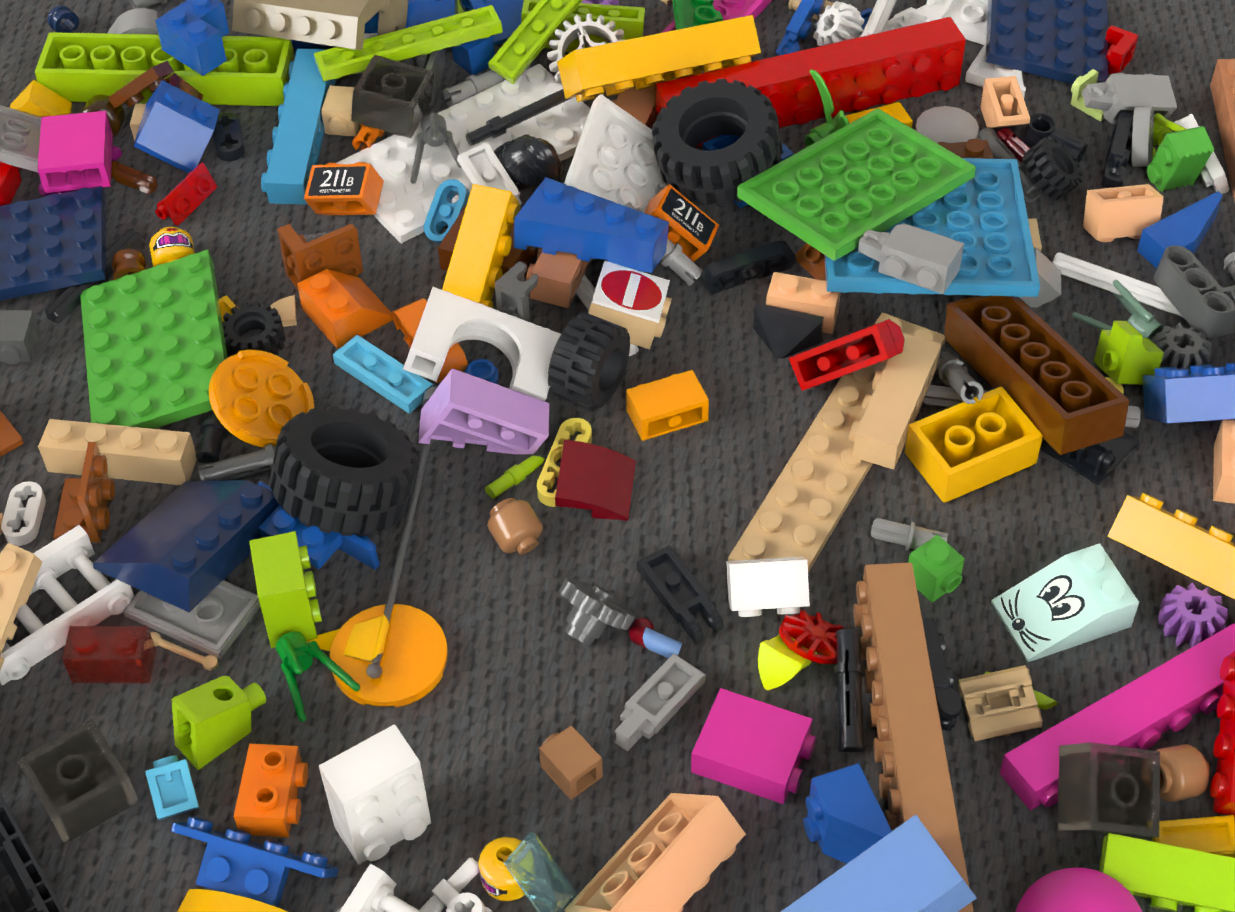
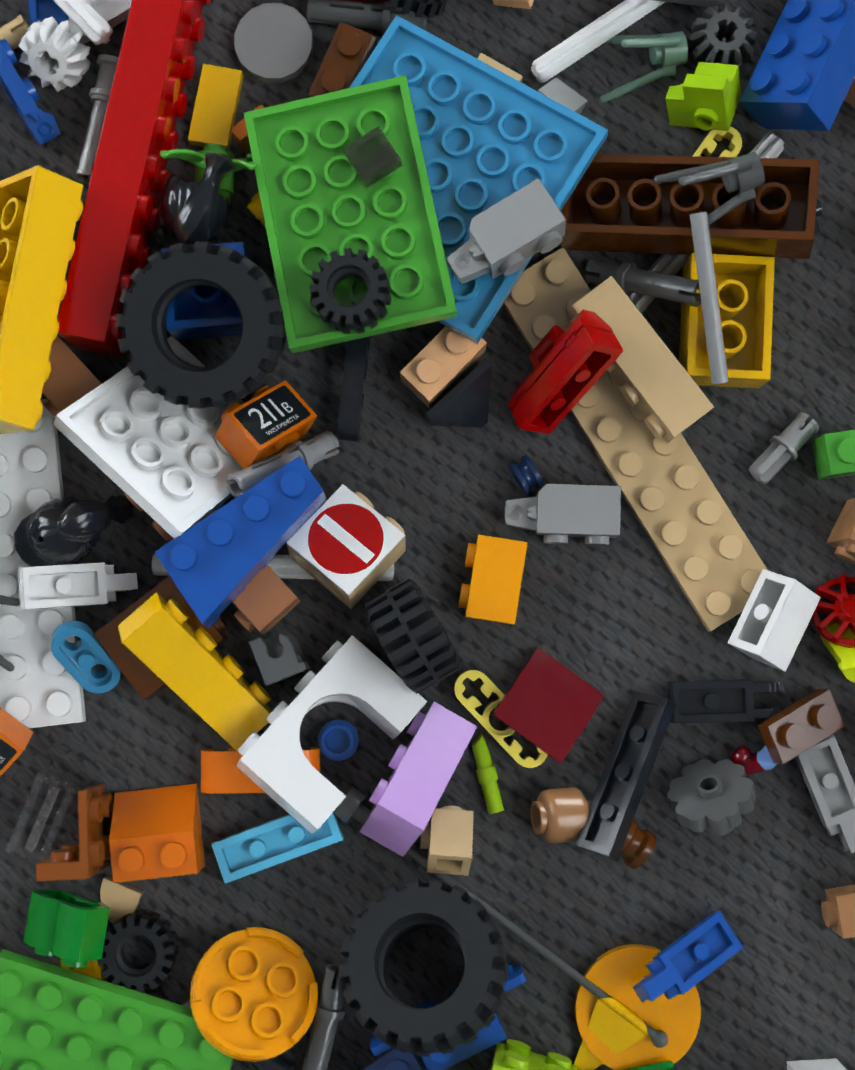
camera: 60 degrees left, 35 degrees up
(249, 280) = (66, 926): none -> green brick
(448, 462) = (449, 841): none -> tan brick
(453, 655) = (689, 959): none -> blue hinge
(523, 578) = (637, 846): none -> reddish brown wheel
(591, 544) = (625, 775): none -> black plate
(696, 646) = (801, 726): none -> plate
(753, 426) = (567, 512): none -> light grey hinge
(759, 389) = (526, 475): none -> dark blue bush
(797, 119) = (197, 209): none -> black piece
(801, 189) = (339, 269): none -> black tyre
(903, 169) = (372, 157): none -> clear smoke tile
(971, 394) = (709, 297): none -> light grey bar
(1071, 354) = (738, 175): none -> dark grey plant

